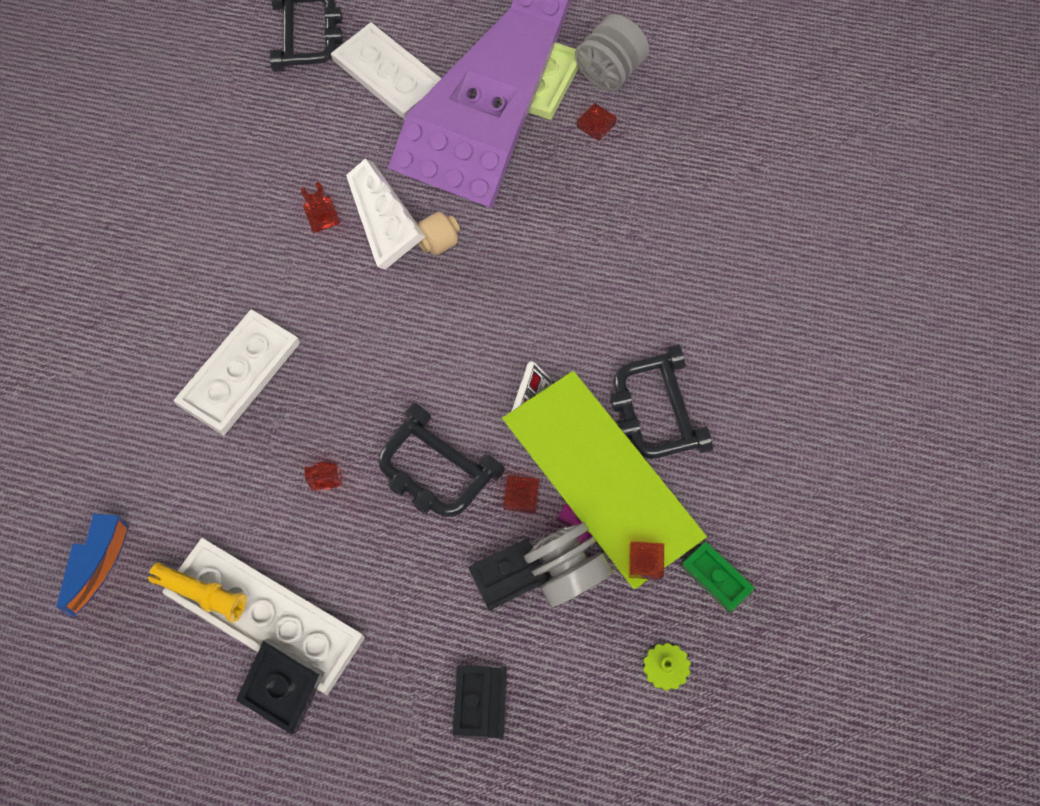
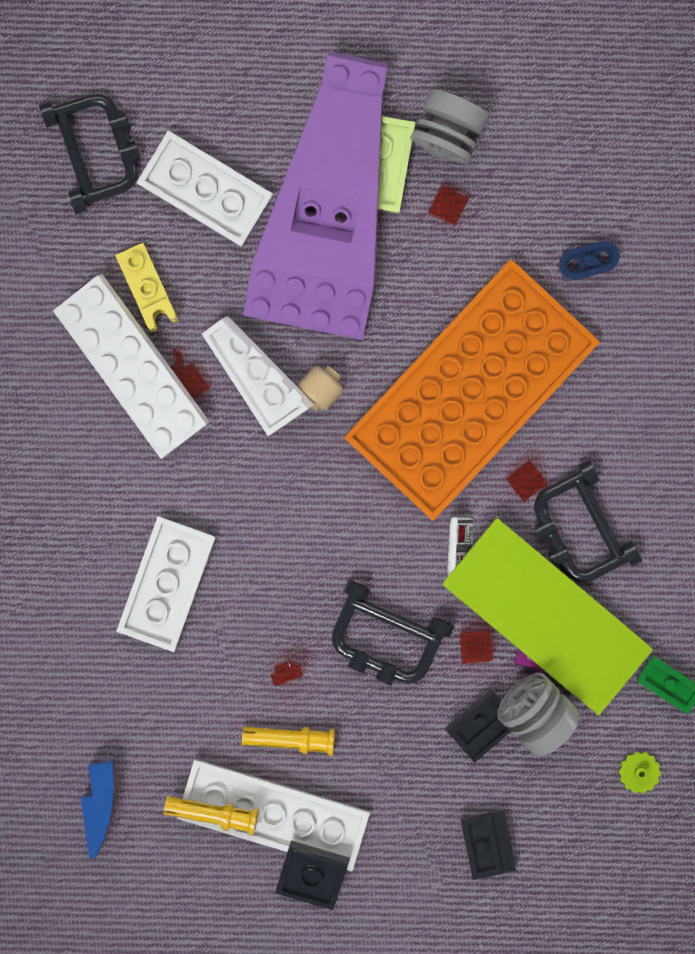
camera: 20 degrees left, 25 degrees up
(275, 188) = (131, 366): none -> white plate
(311, 133) = (145, 285): none -> light yellow plate
(318, 546) = (304, 740): none -> yellow pin
(577, 267) = (472, 390): none -> orange plate
(611, 352) = (526, 480): none -> clear red slope
(646, 560) = (605, 691): clear red plate -> none
(714, 182) = (588, 261): none -> dark blue plate

